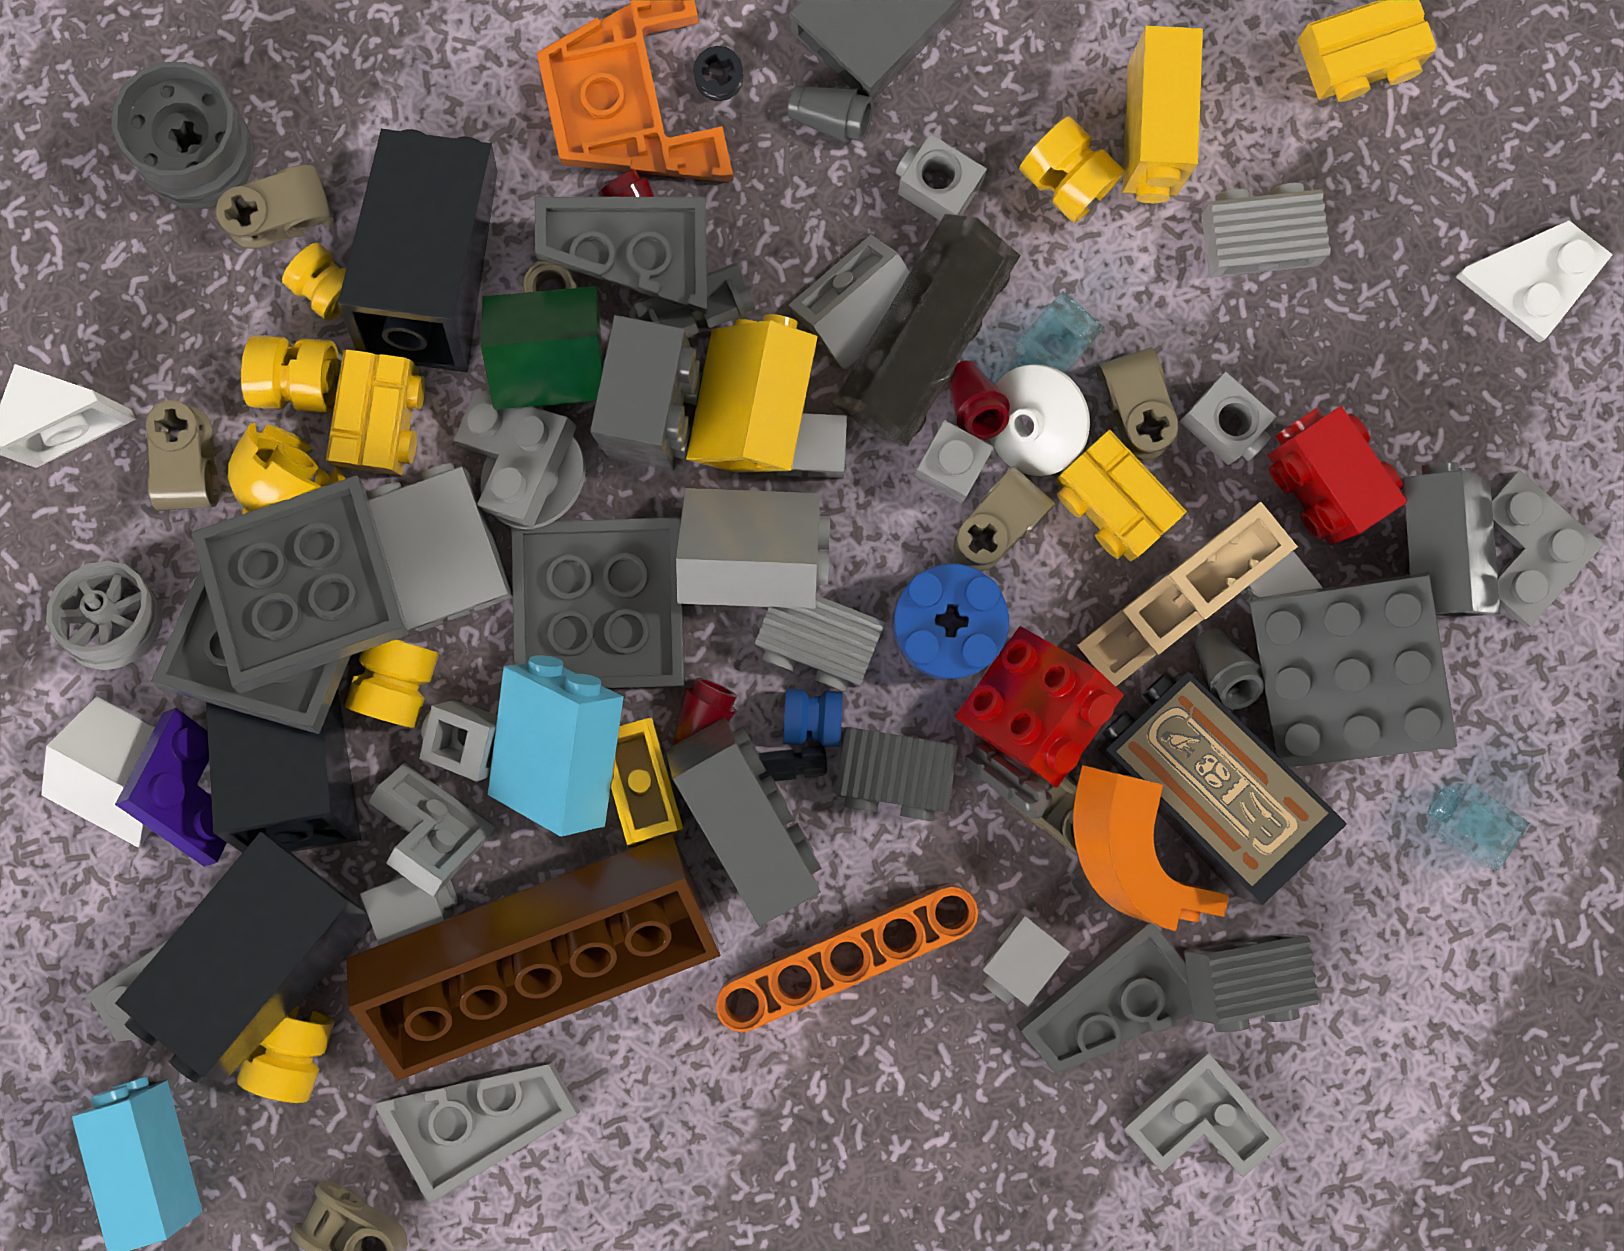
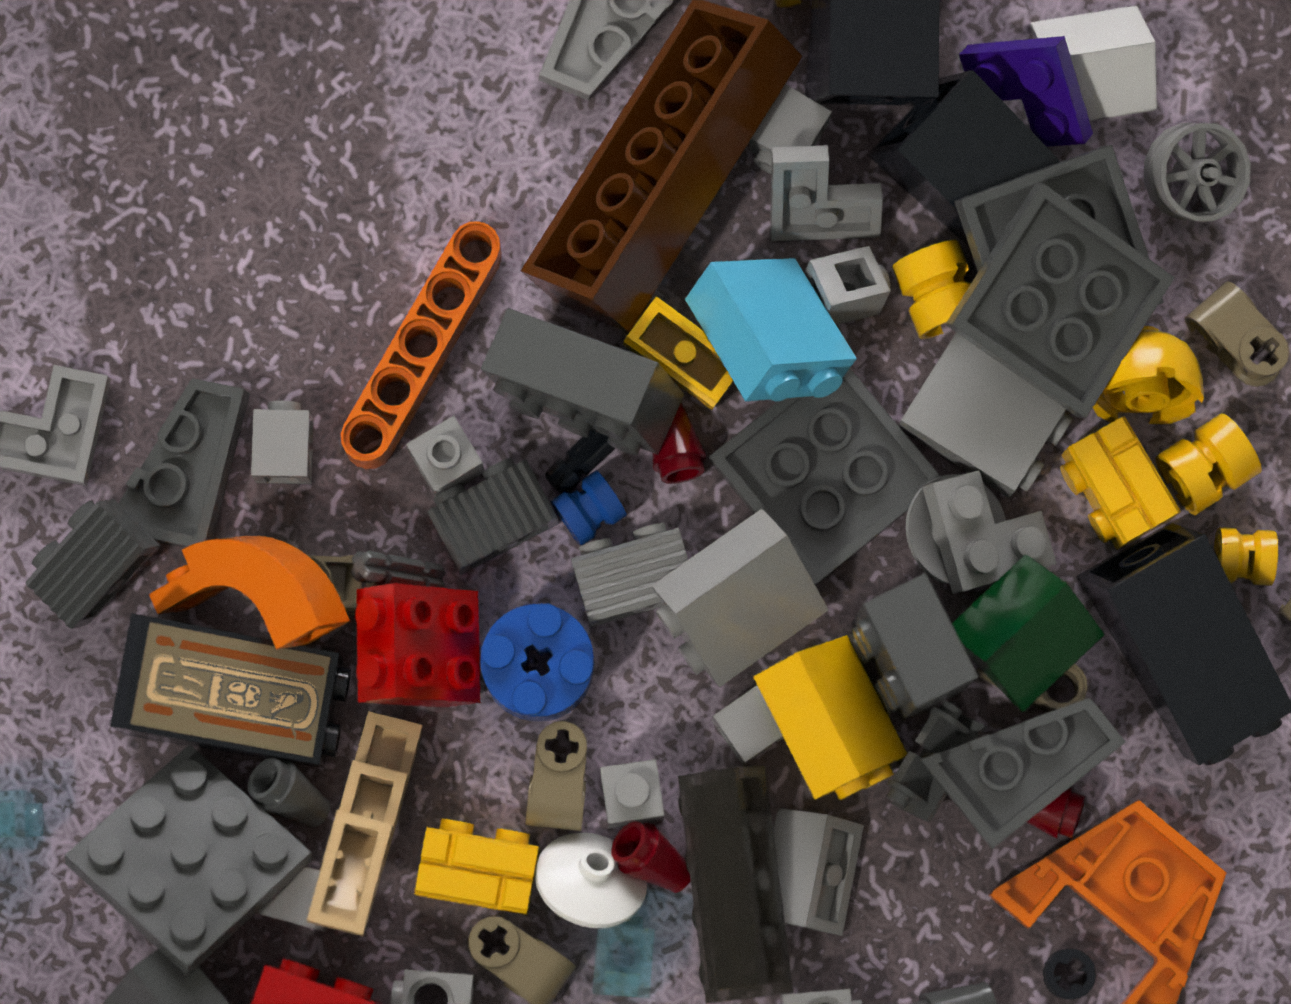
camera: 140 degrees right, 5 degrees down
(899, 847) = (445, 456): none -> light grey brick

